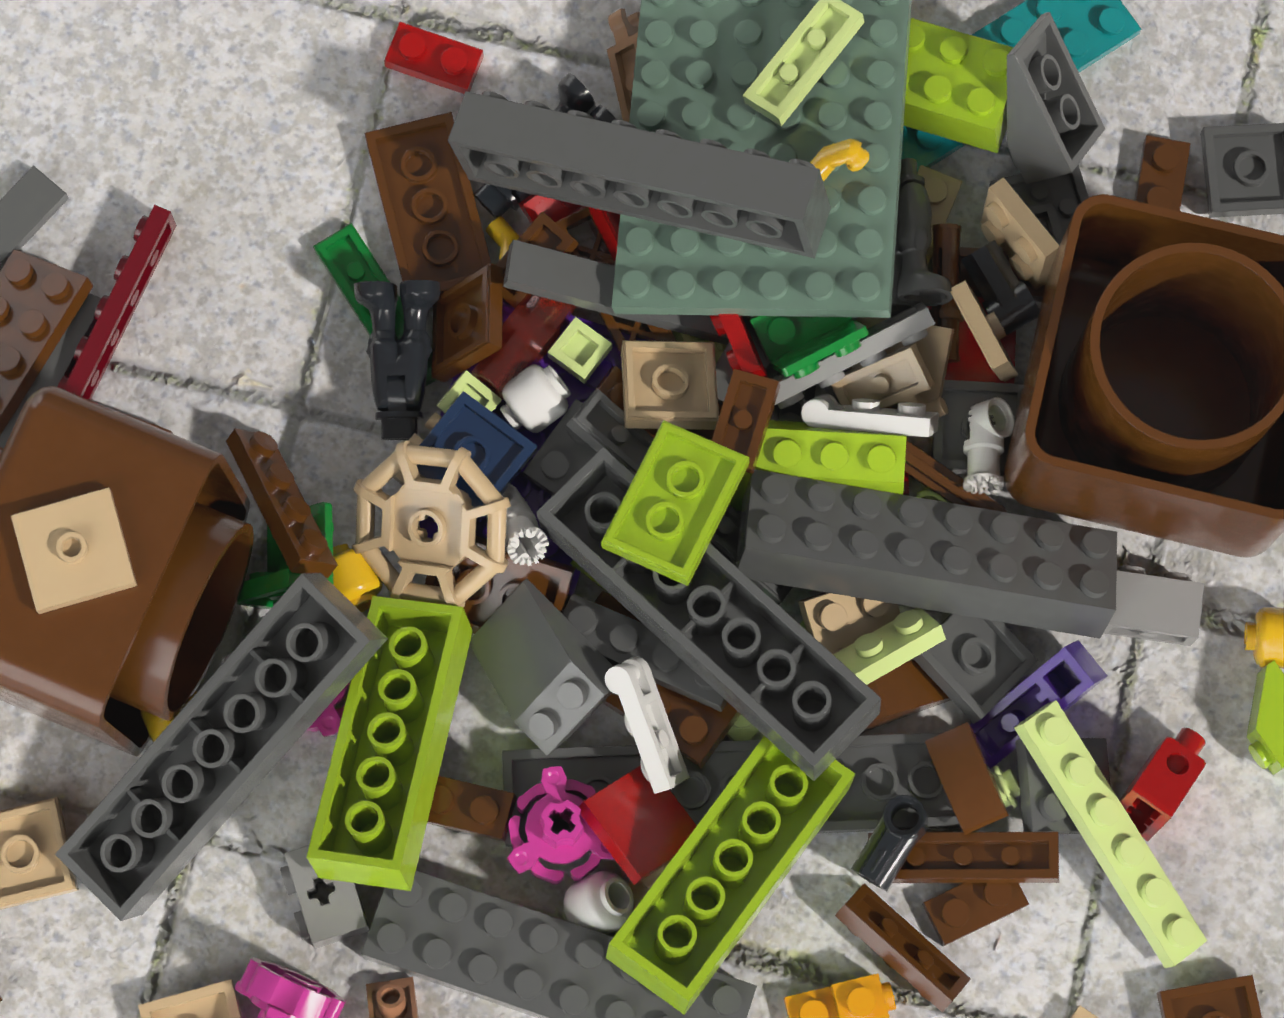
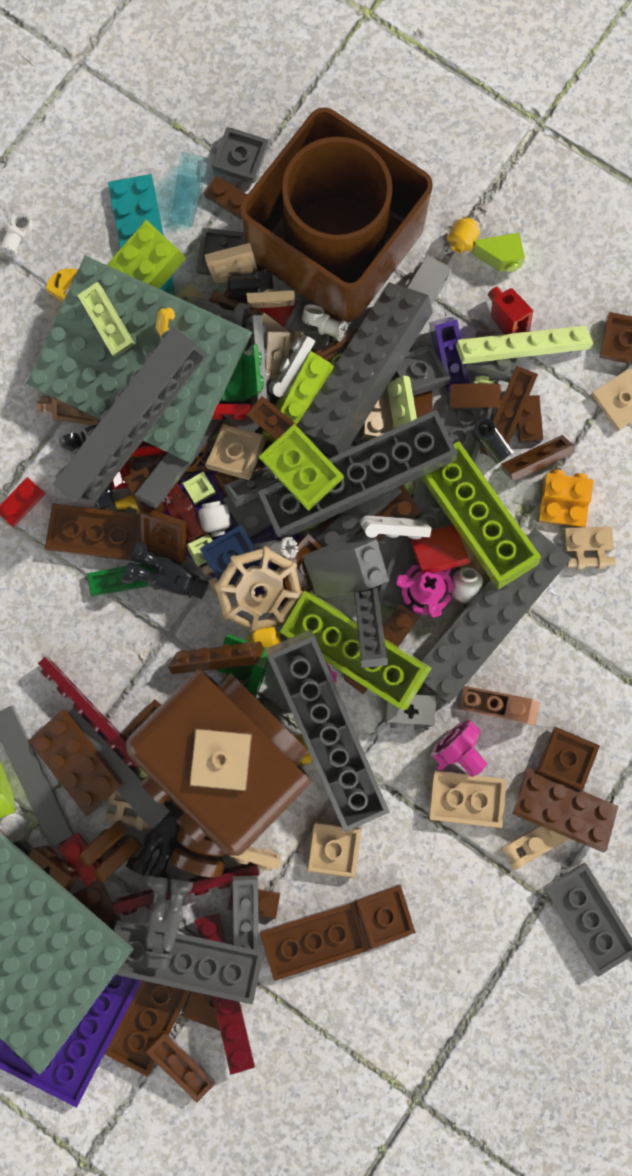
camera: 65 degrees left, 5 degrees up
(432, 741) = (370, 628): none -> dark grey tile
(828, 954) = (526, 493): none -> clear plate
(1047, 106) = (178, 223): dark grey slope -> none
(1155, 101) = (188, 188): none -> clear light blue slope

